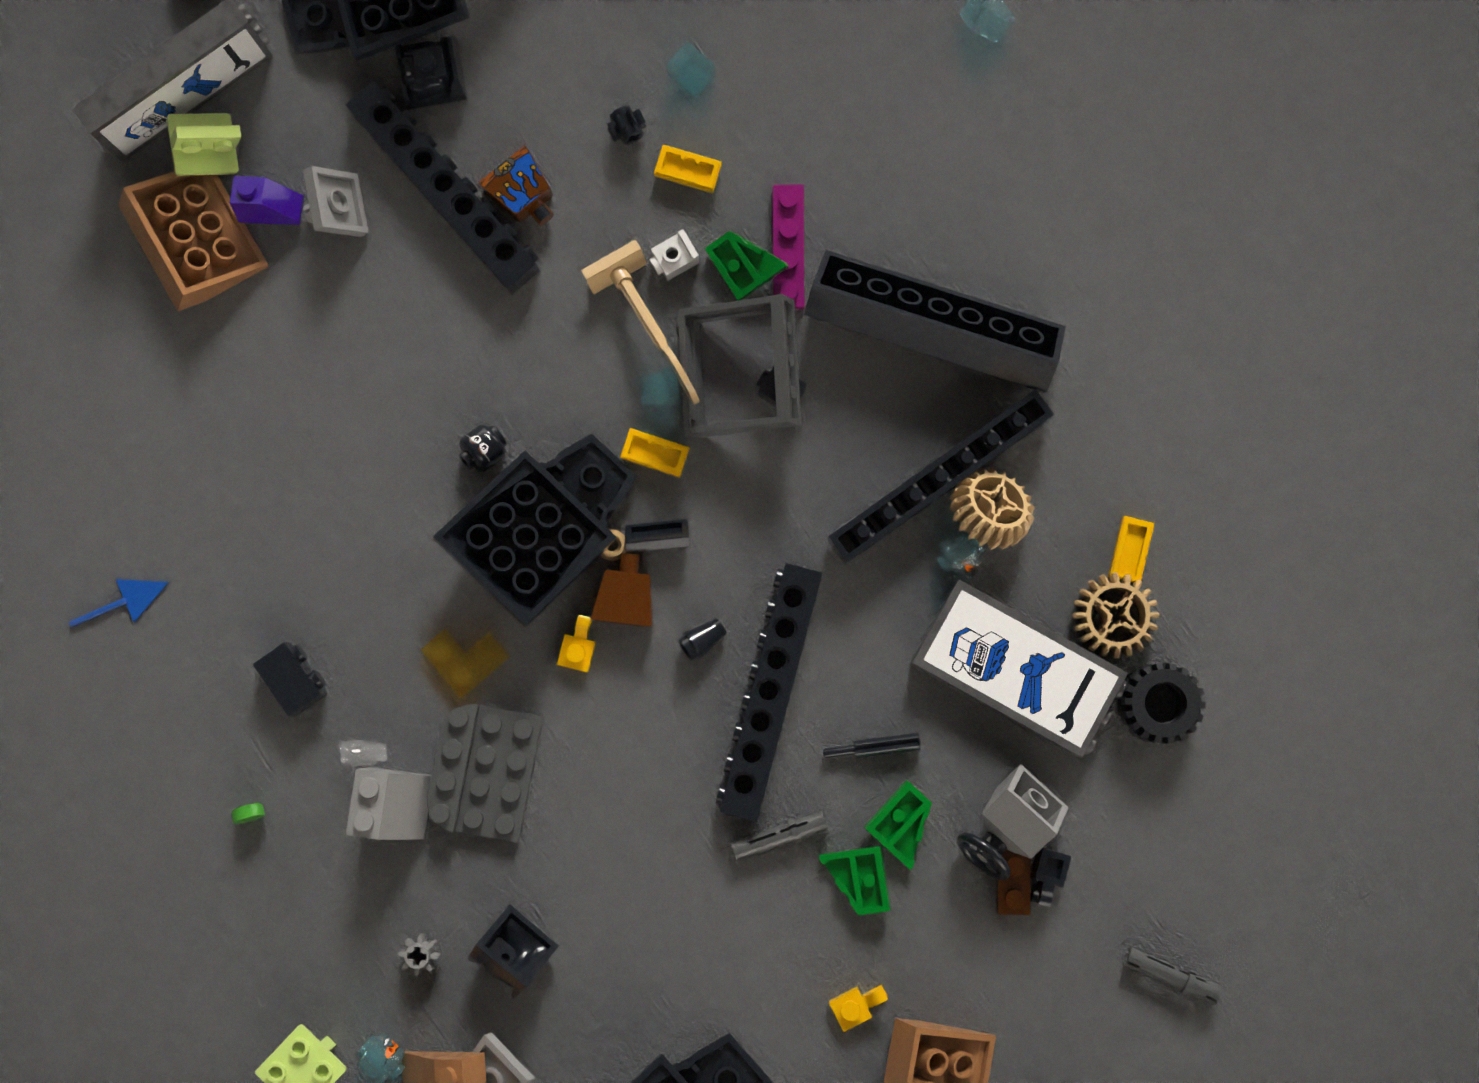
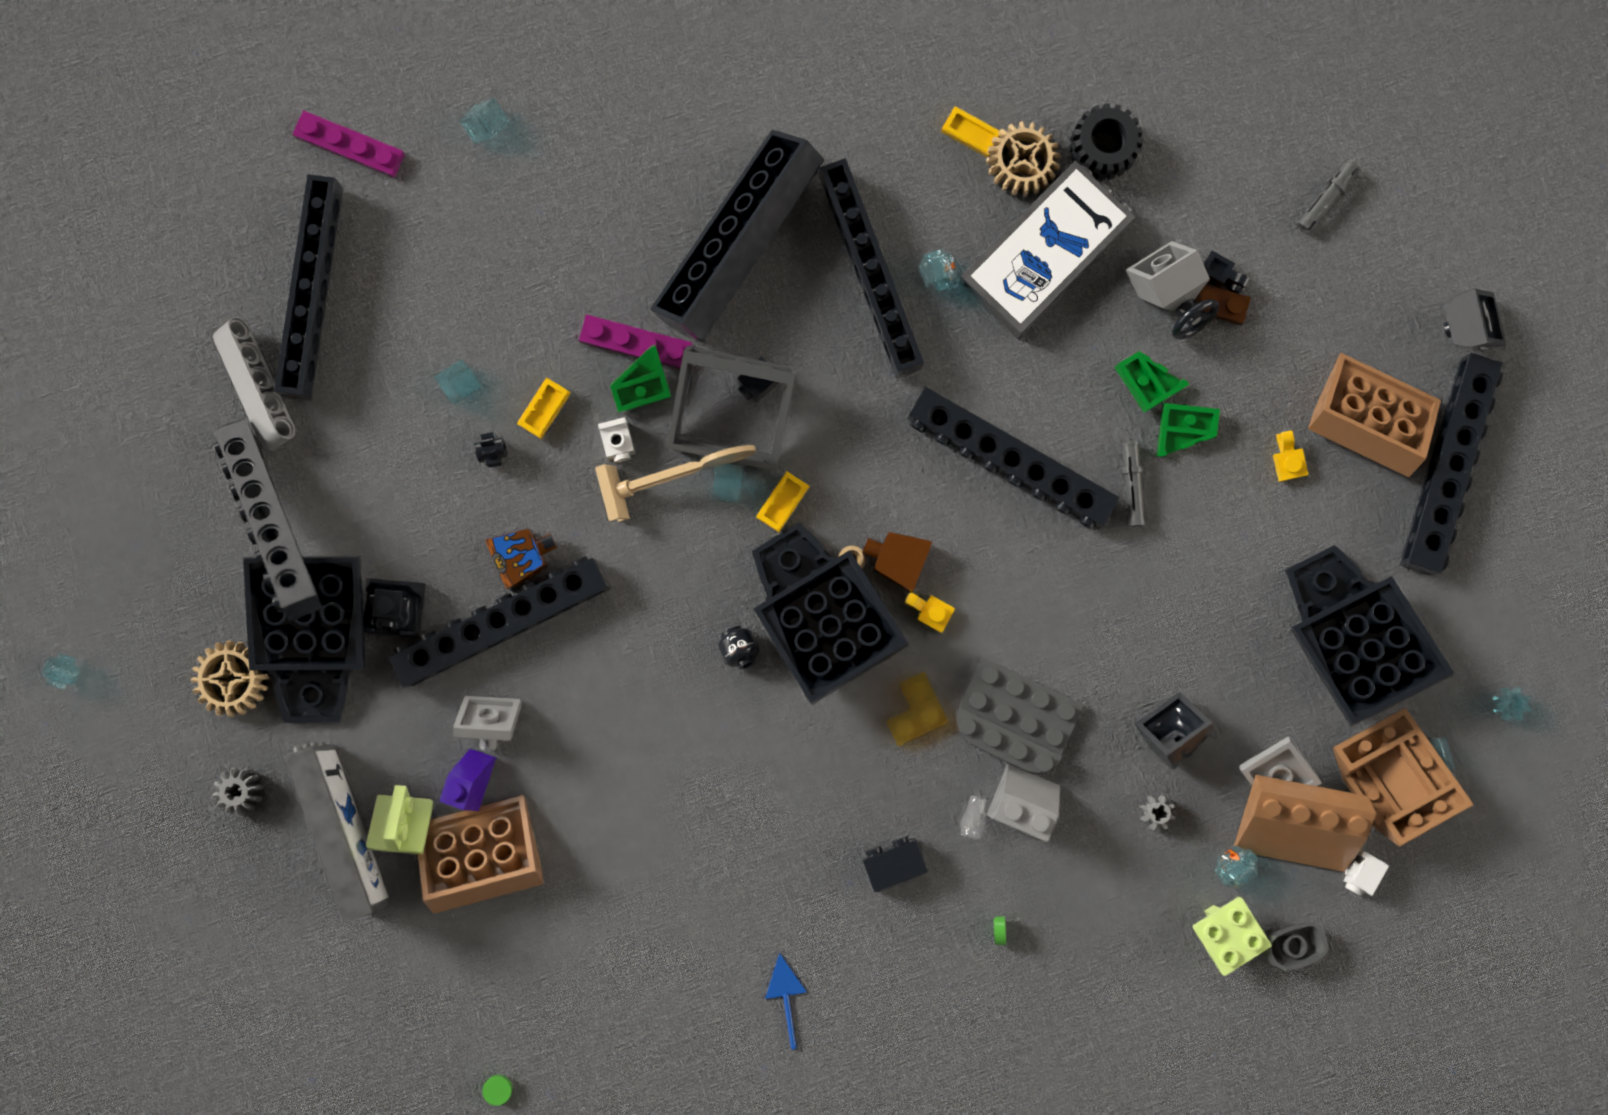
camera: 80 degrees left, 0 degrees up
(657, 535) = (855, 518): black tile -> none
(701, 639) = (952, 504): black cone -> none
(877, 746) = (1080, 383): black axle -> none
(992, 508) = (903, 235): tan gear -> none

